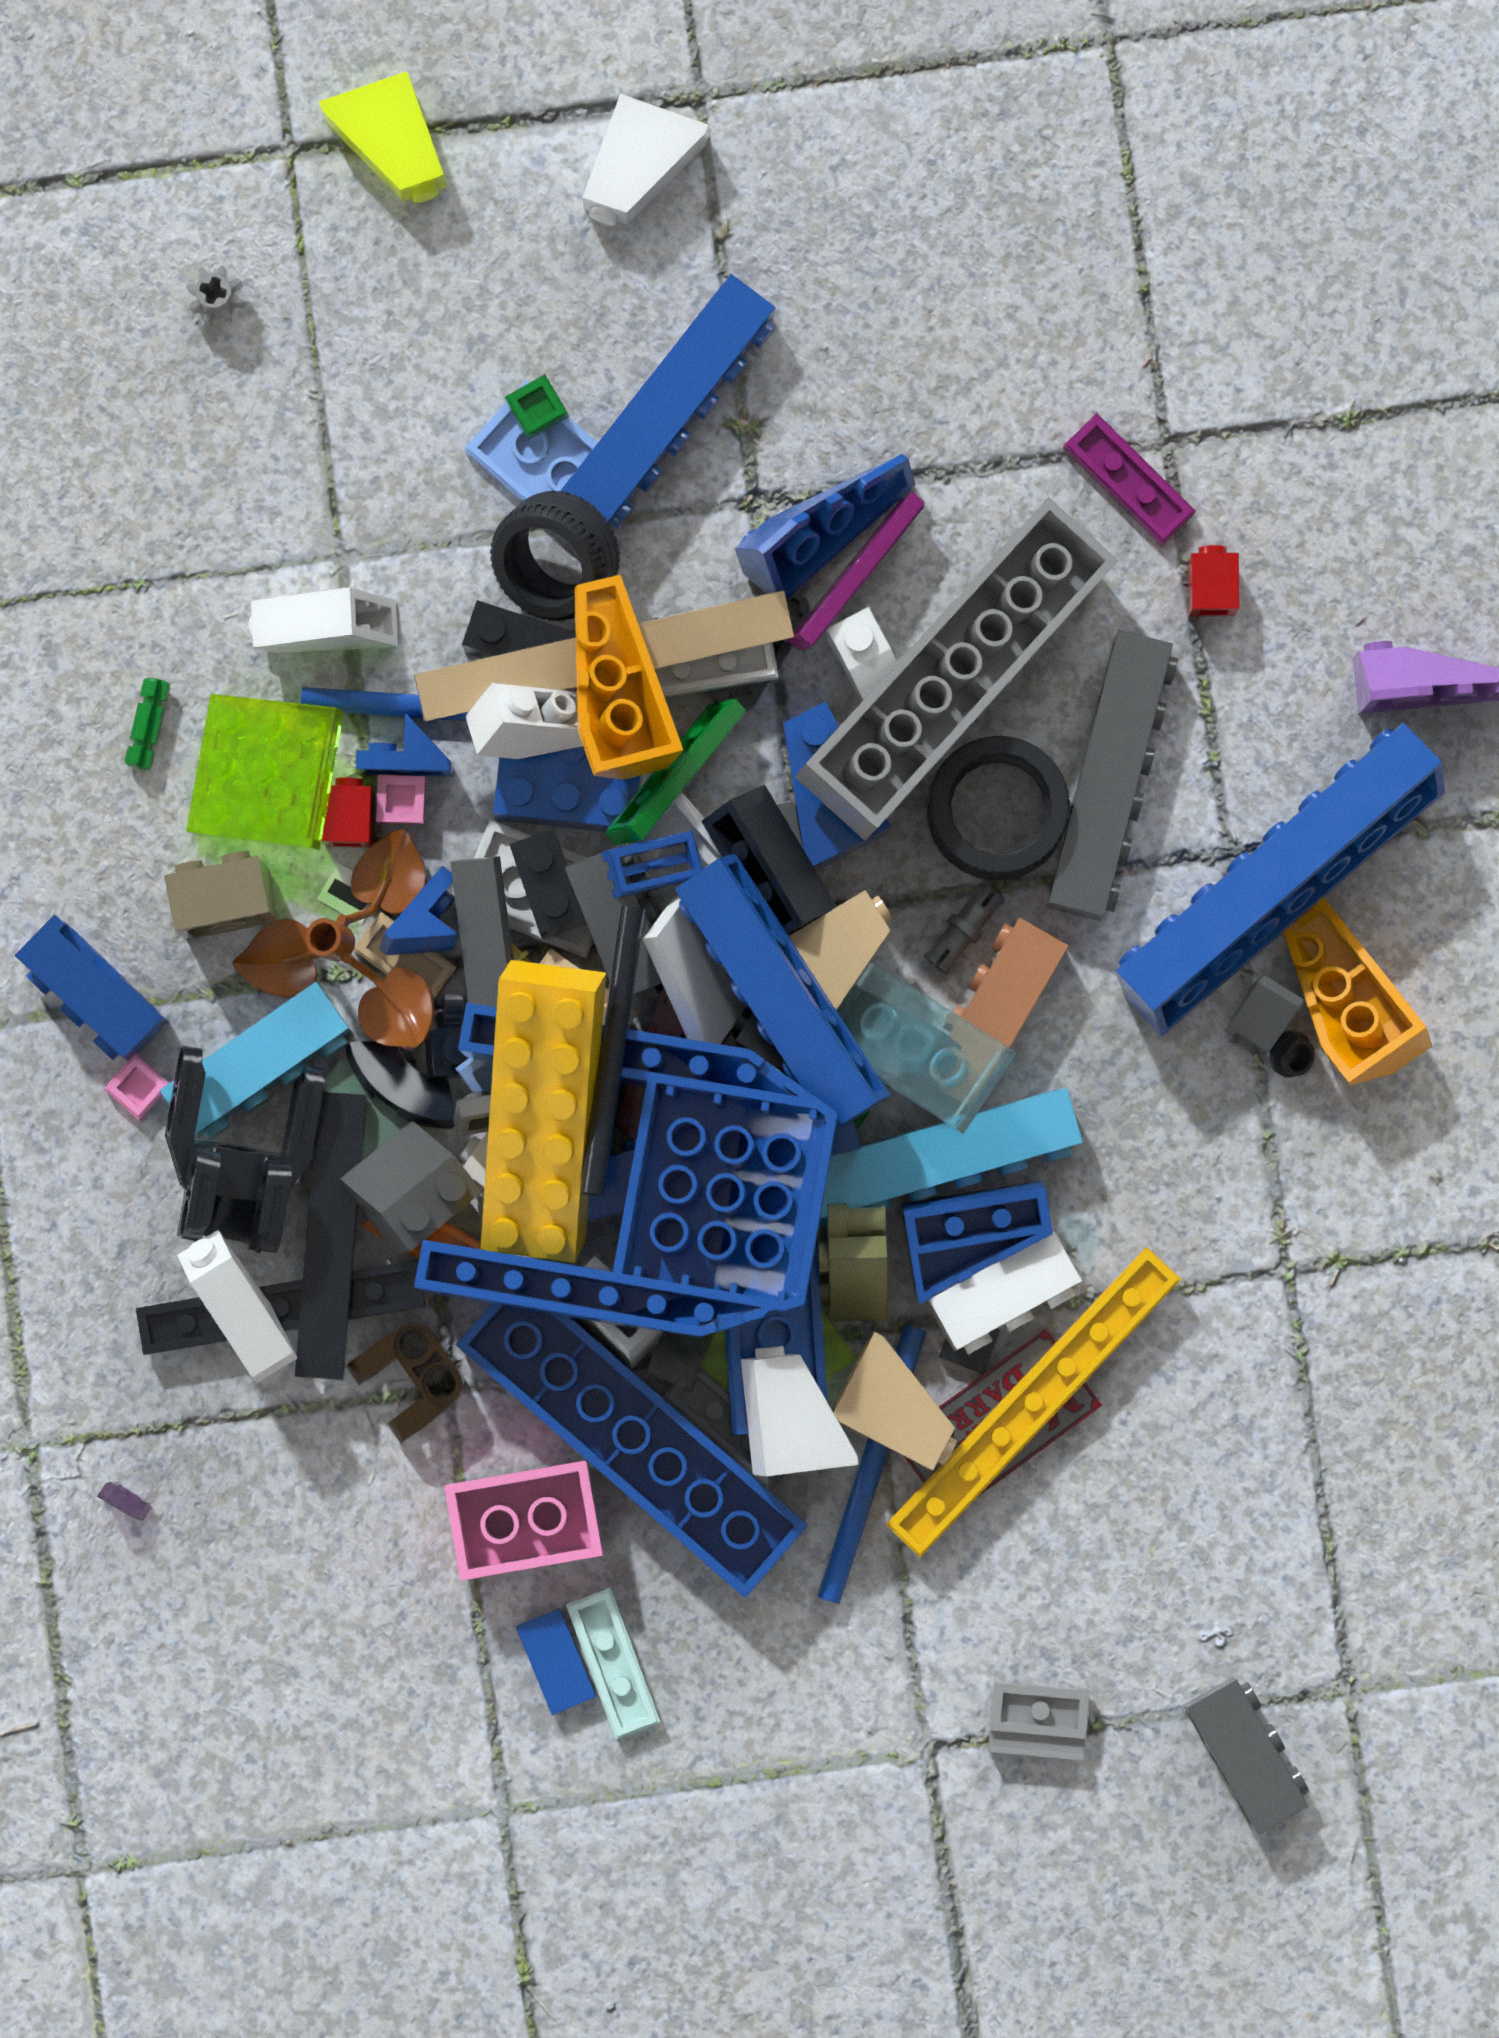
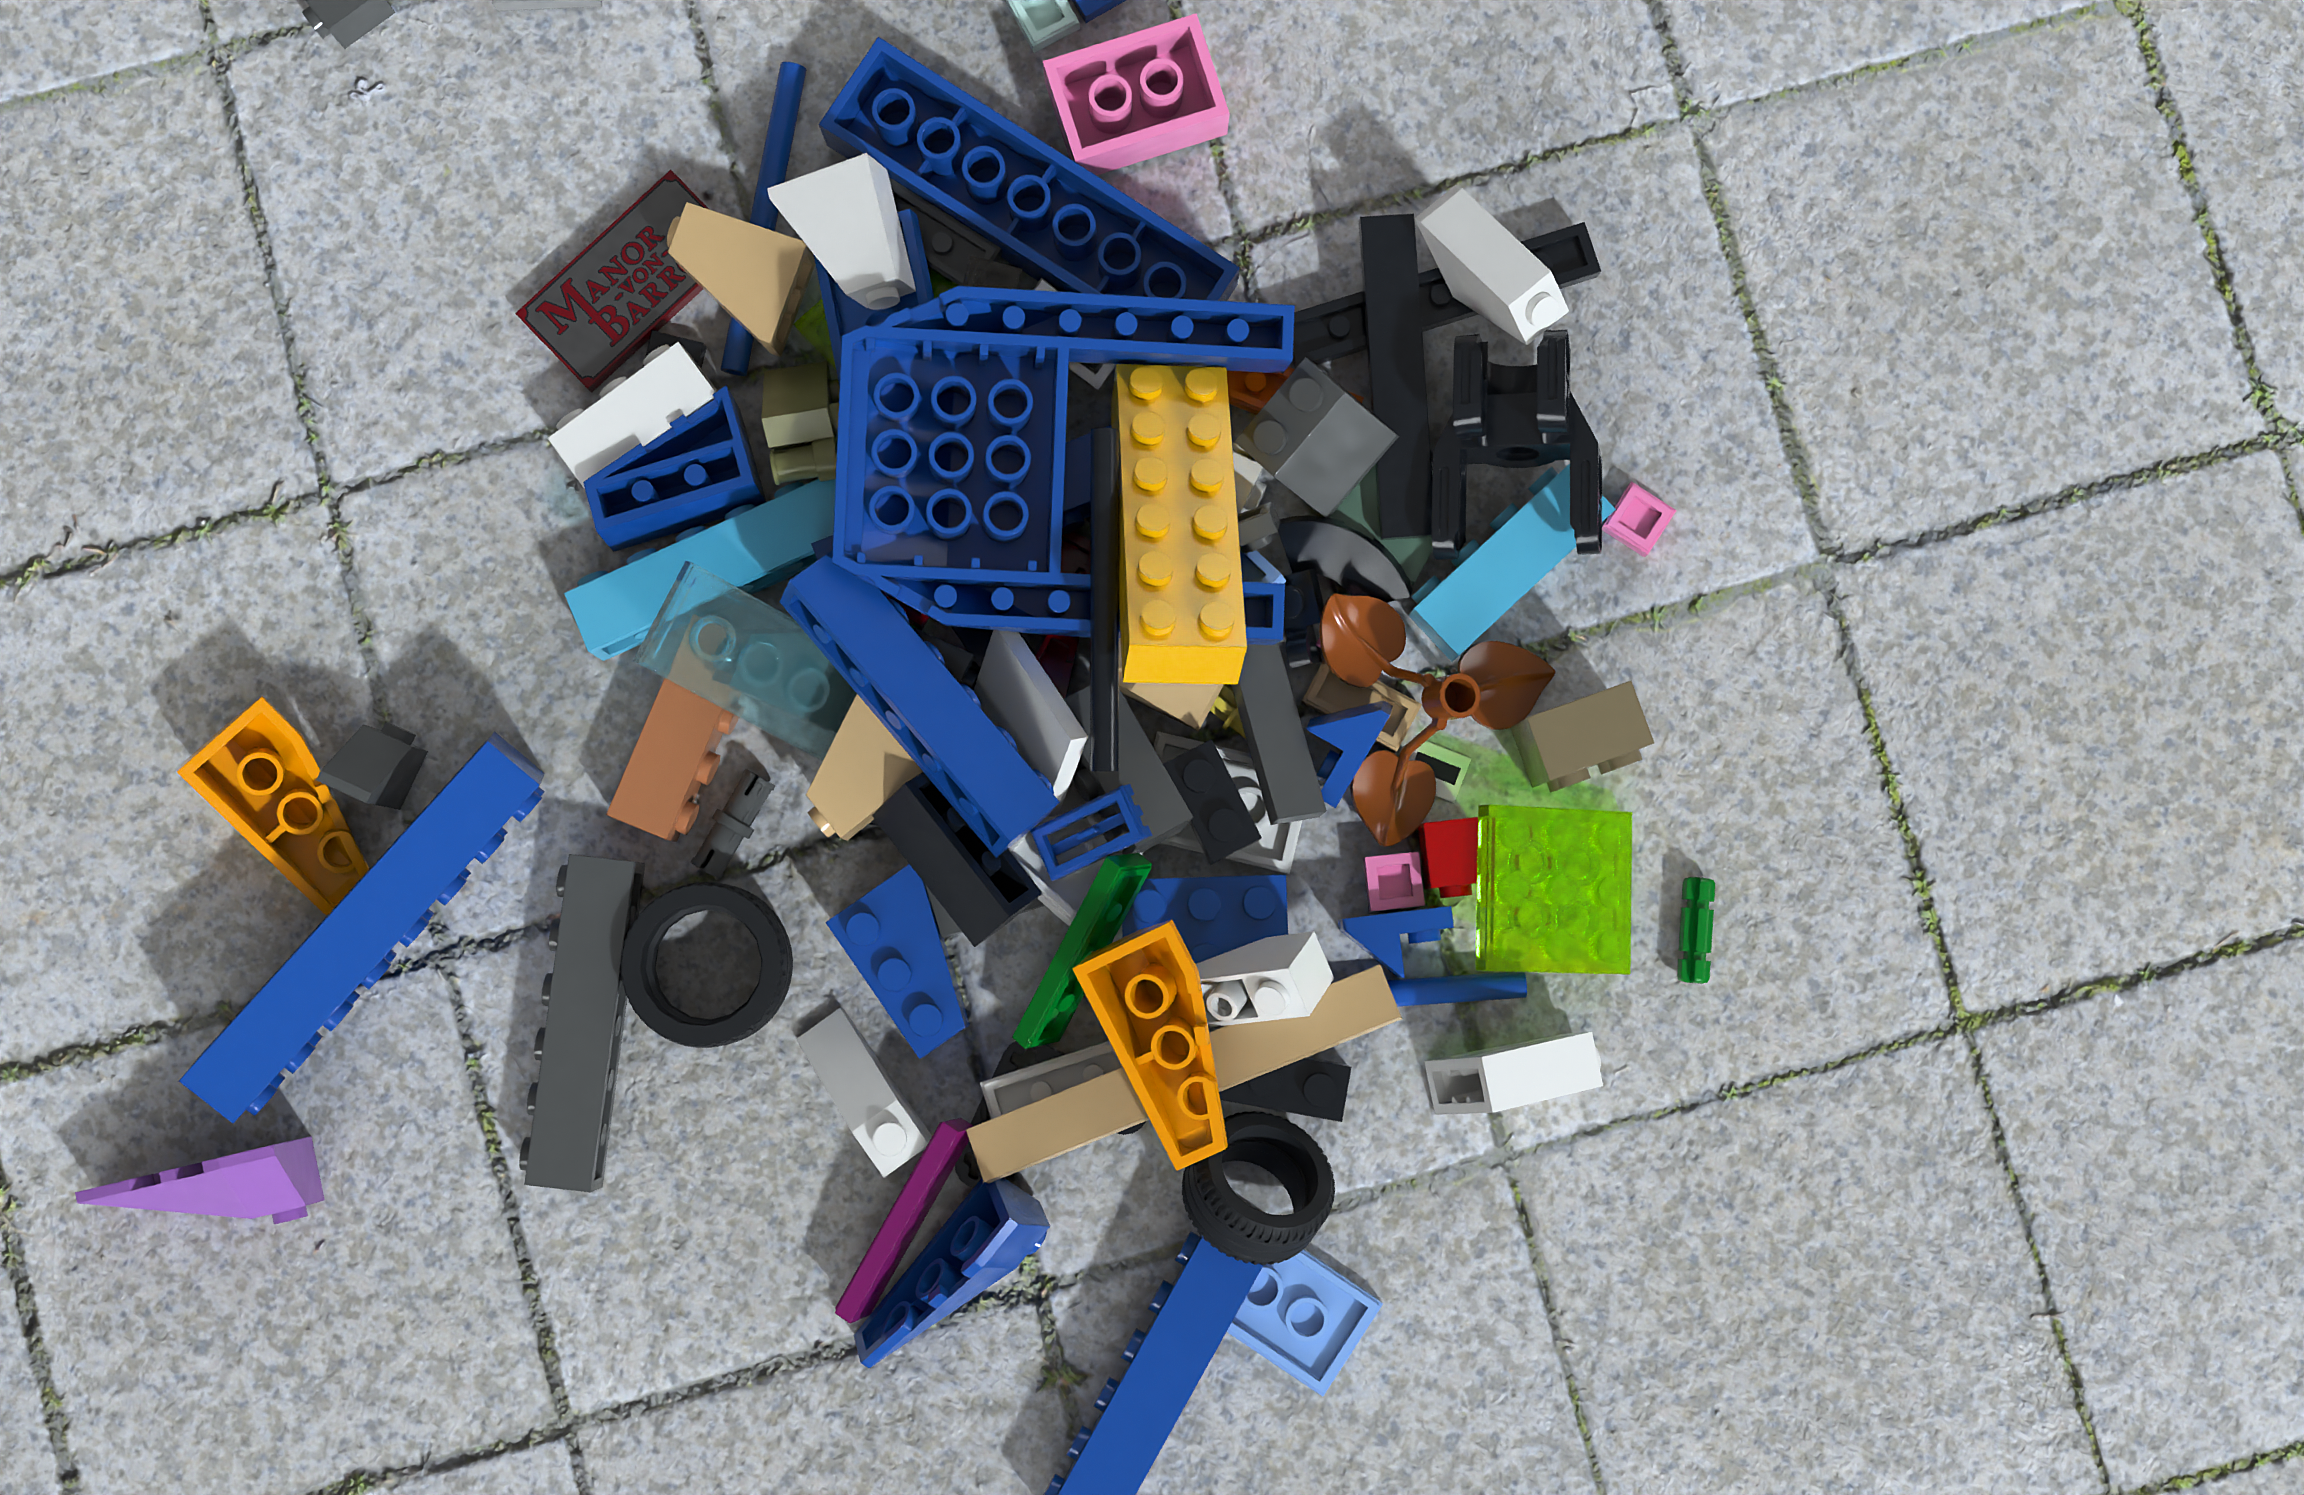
camera: 170 degrees right, 0 degrees up
(90, 989) = (1712, 616): blue wedge -> none
(124, 1500) = (1579, 66): clear purple tile -> none
(222, 306) = (1709, 1460): light grey gear -> none
(419, 1370) = (1277, 246): dark brown piece -> none
(536, 407) = (1306, 1365): green tile -> none
(956, 669) = (768, 1116): light grey brick -> none
(1033, 1401) = (587, 307): yellow tile -> none
(1129, 479) = (604, 1376): magenta tile -> none
(1213, 582) = (490, 1266): red brick -> none
(1292, 1054) = (339, 726): black plate -> none

